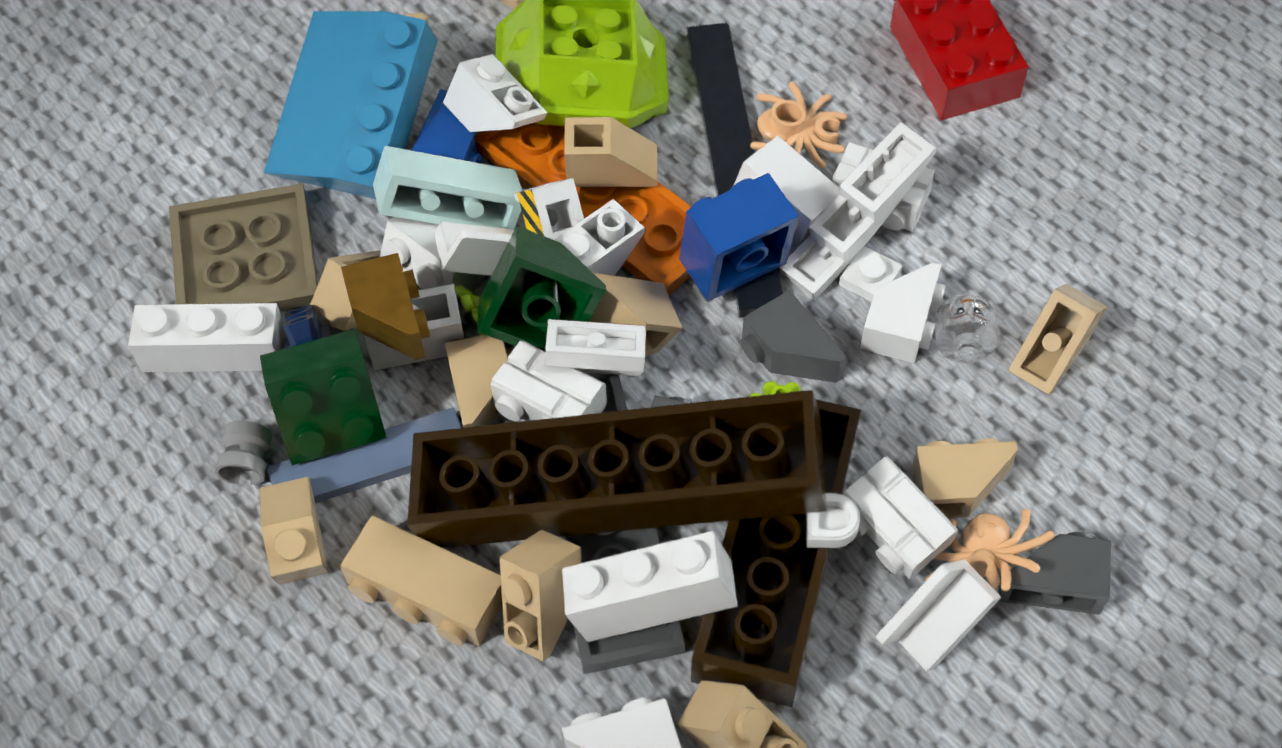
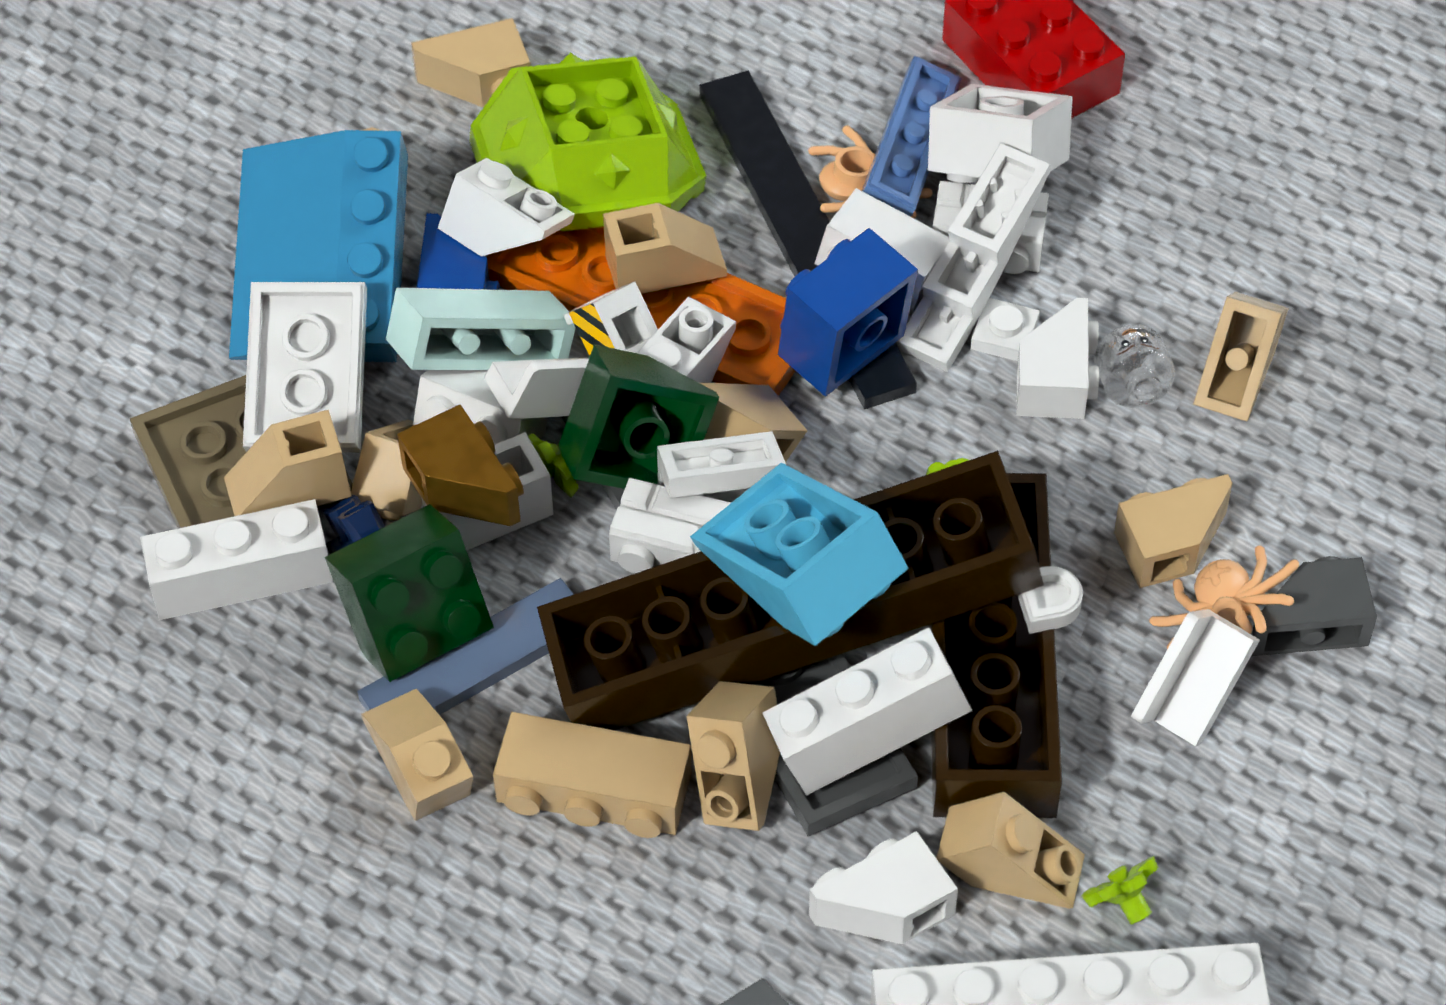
camera: 15 degrees left, 5 degrees down
(244, 451) = (325, 678): light grey wheel -> none
(266, 272) = (289, 466): none -> tan slope
(304, 193) = (306, 356): none -> white tile
(472, 367) = (576, 534): tan slope -> none
(625, 442) = (802, 551): none -> medium azure slope
(791, 341) = (937, 420): dark grey slope -> none
(838, 101) = (903, 151): none -> medium blue tile
(899, 519) = (1124, 584): white brick -> none
(920, 103) = (979, 117): none -> white brick

